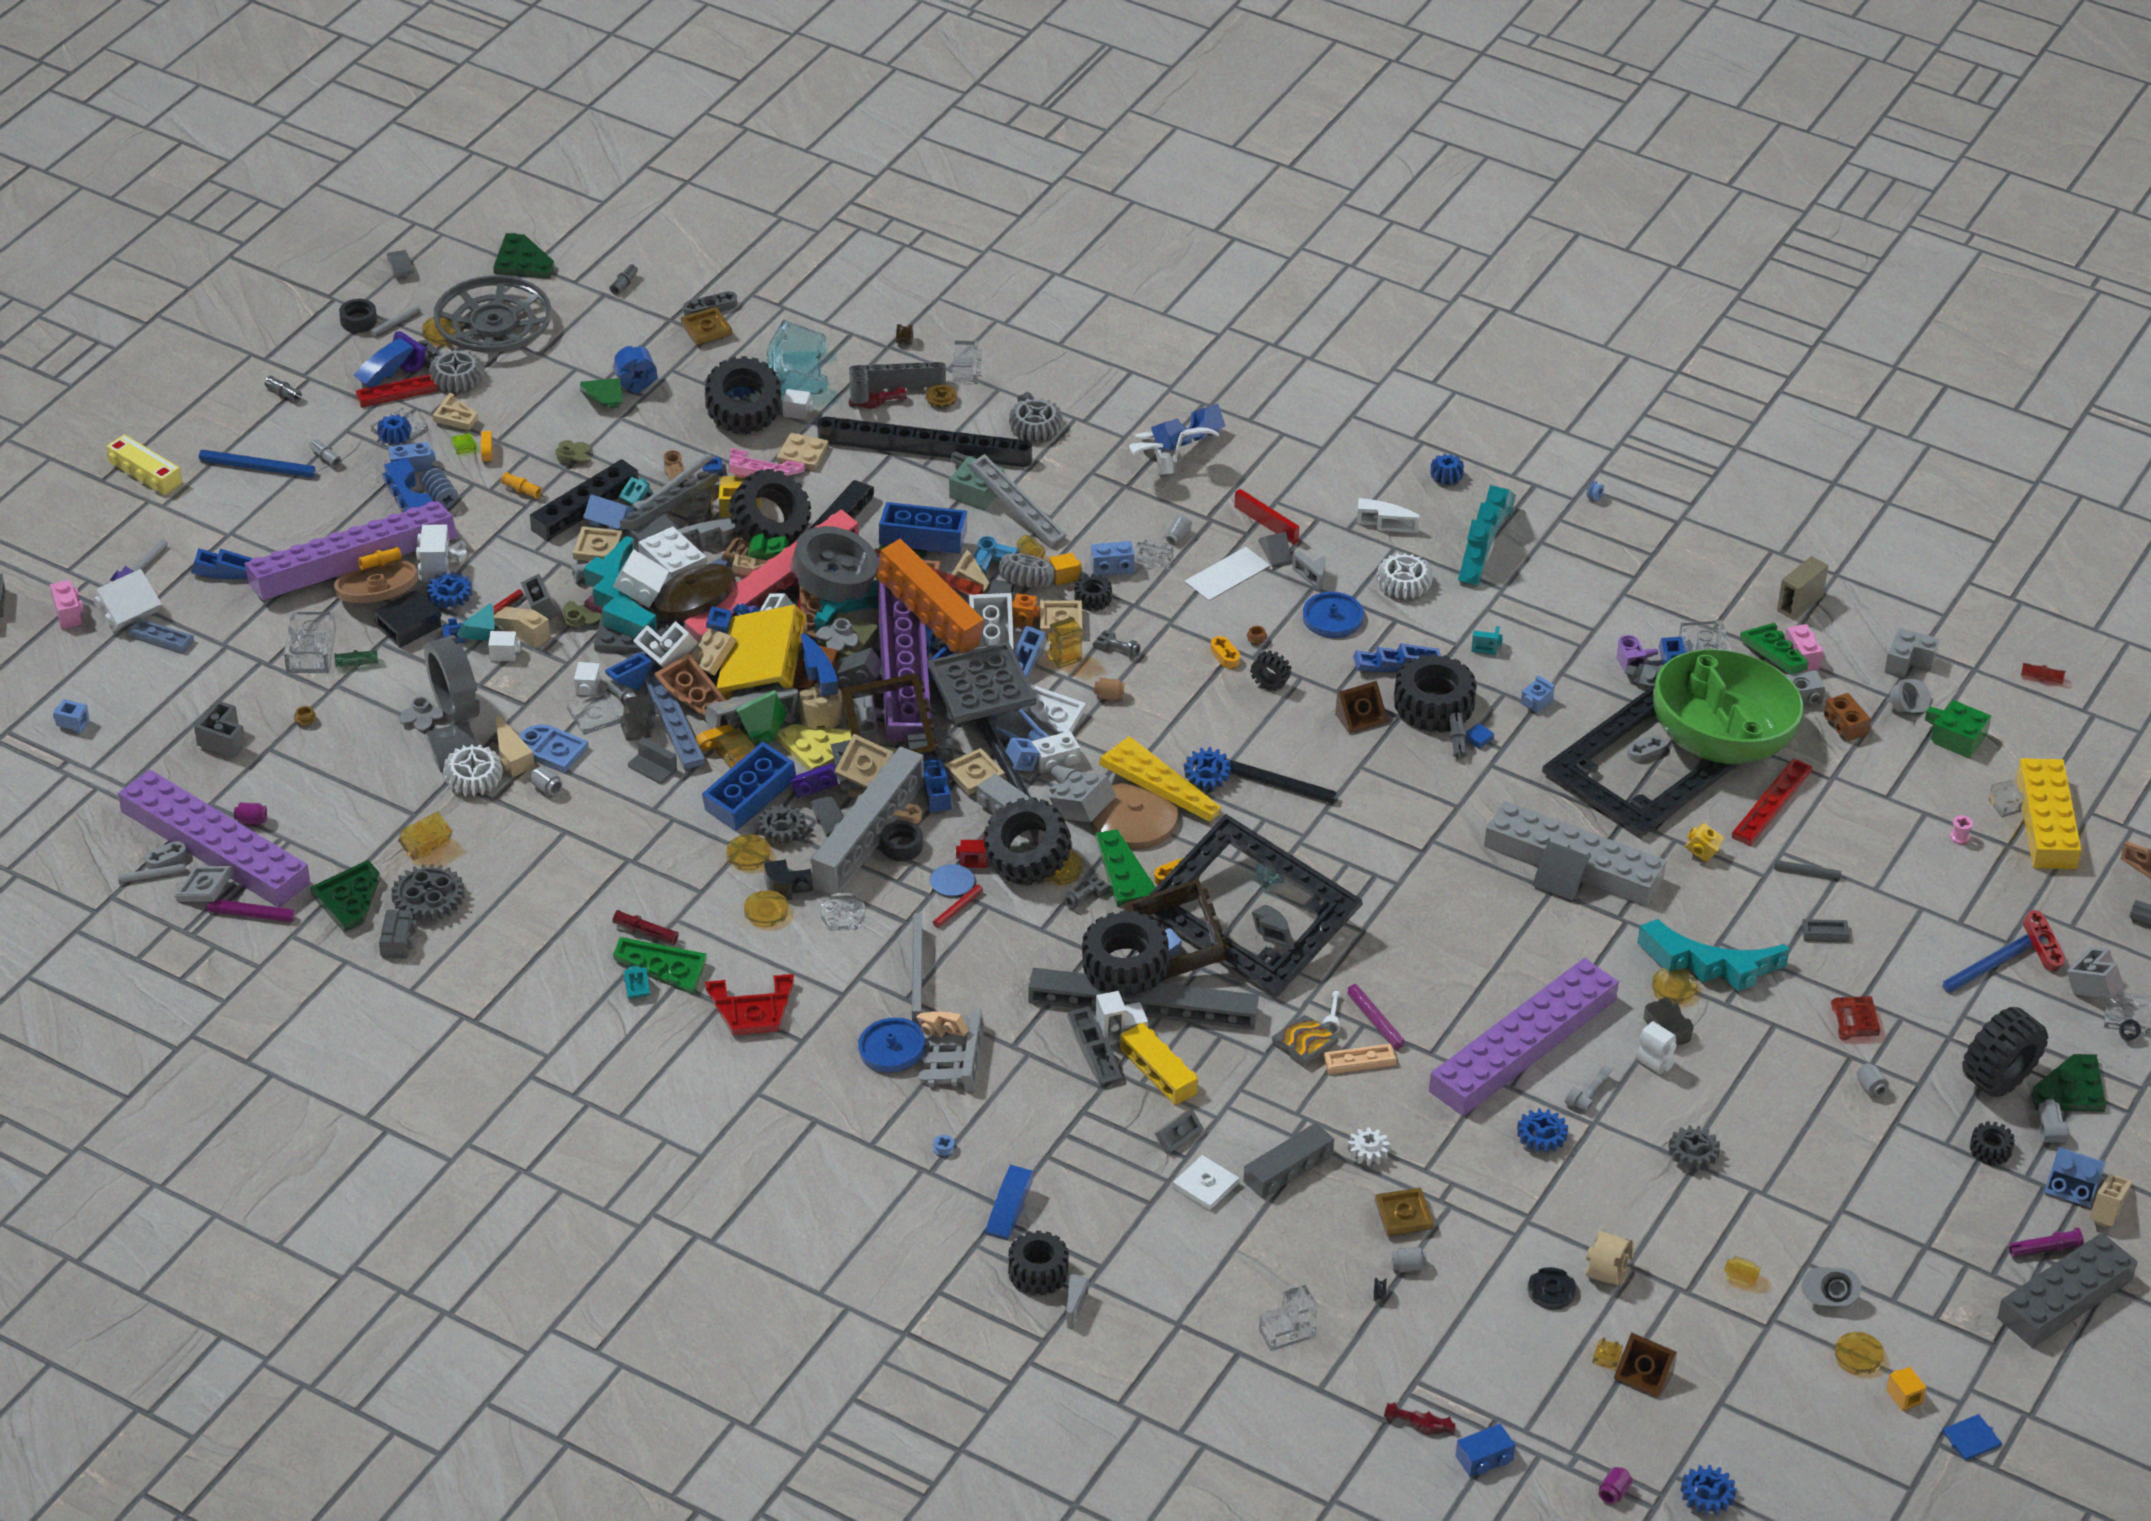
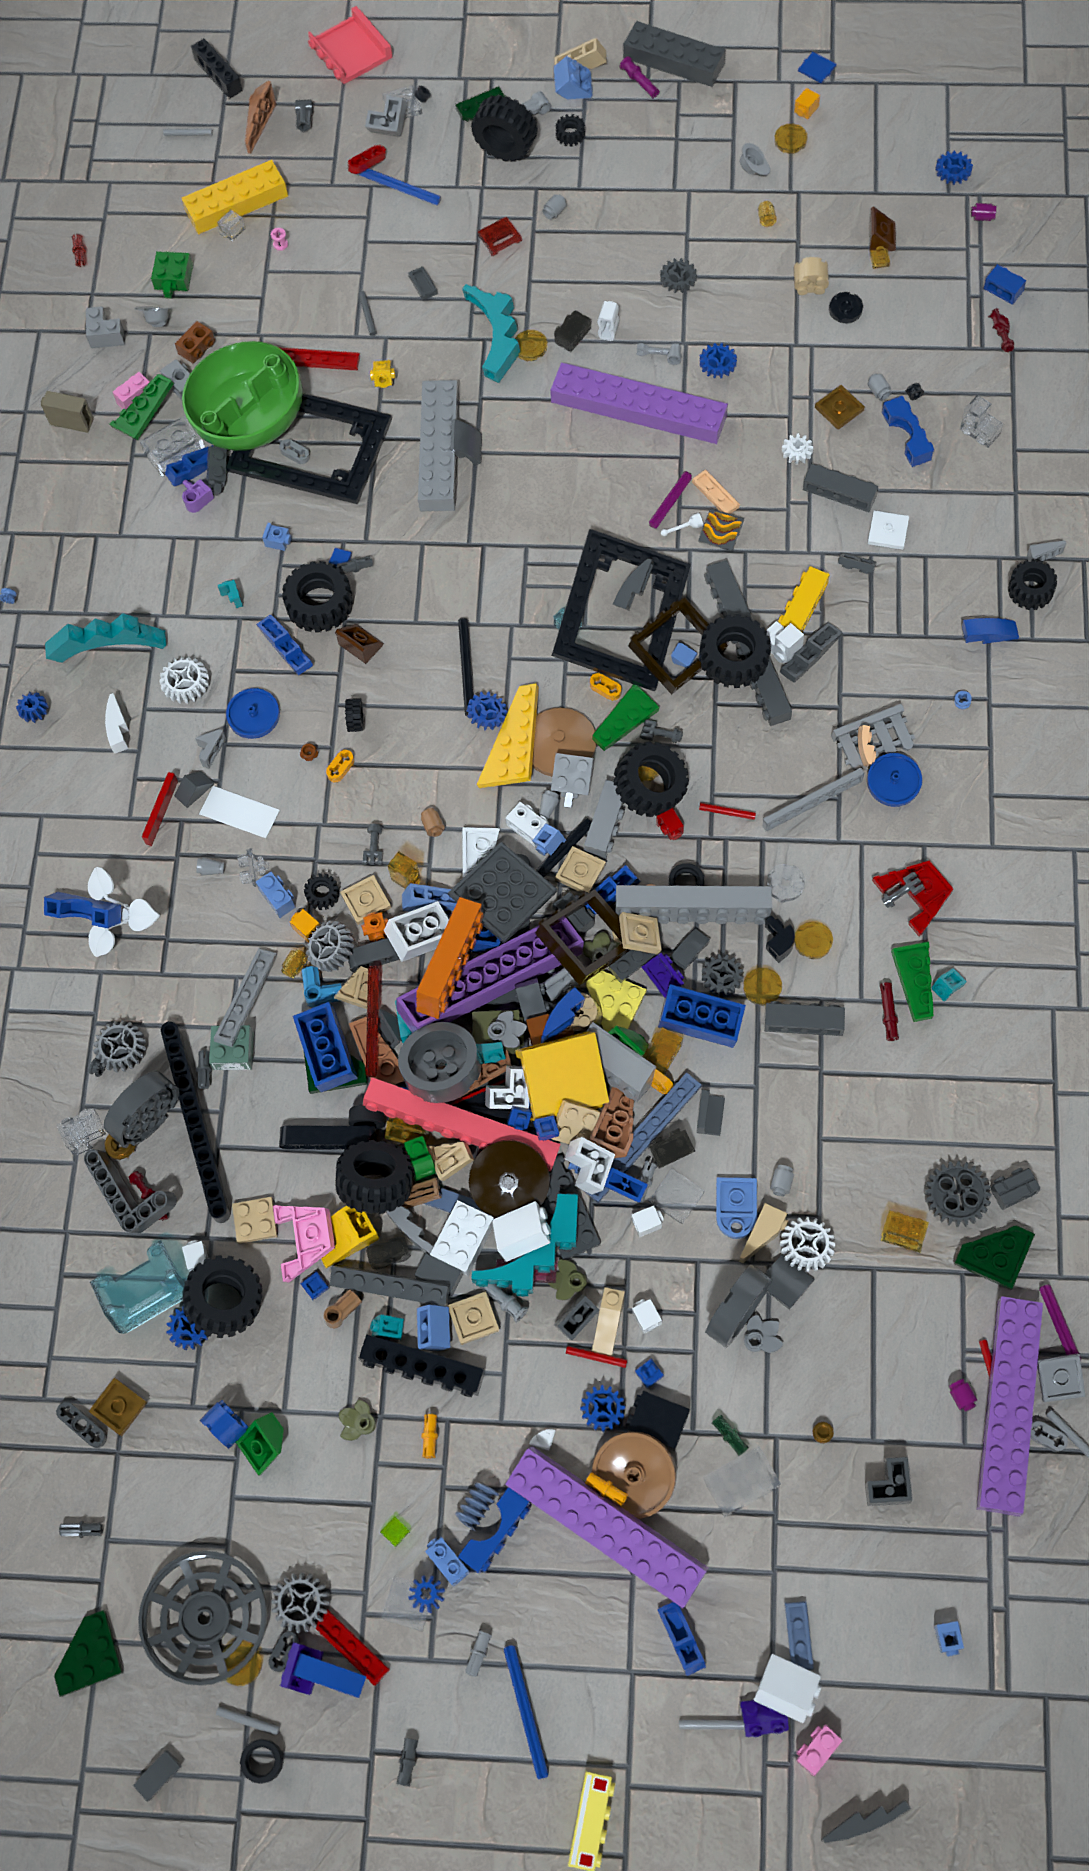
camera: 110 degrees left, 25 degrees up
(432, 552) = (573, 1442): white brick -> none
(455, 414) = (360, 1564): tan wing -> none
(478, 625) = (635, 1349): teal slope -> none
(486, 446) = (392, 1502): light orange beam -> none
(675, 482) = (404, 1308): light grey piece -> none
(688, 862) = (804, 1018): none -> dark grey brick
(761, 980) = (910, 885): none -> dark grey hinge
(904, 334) = (48, 1219): dark brown wheel -> none
(951, 392) = (141, 1109): none -> dark grey brick
(952, 880) = (702, 830): medium blue piece -> none
(1035, 734) = (519, 844): medium blue plant -> none
(1300, 1255) = (899, 414): none -> blue arch

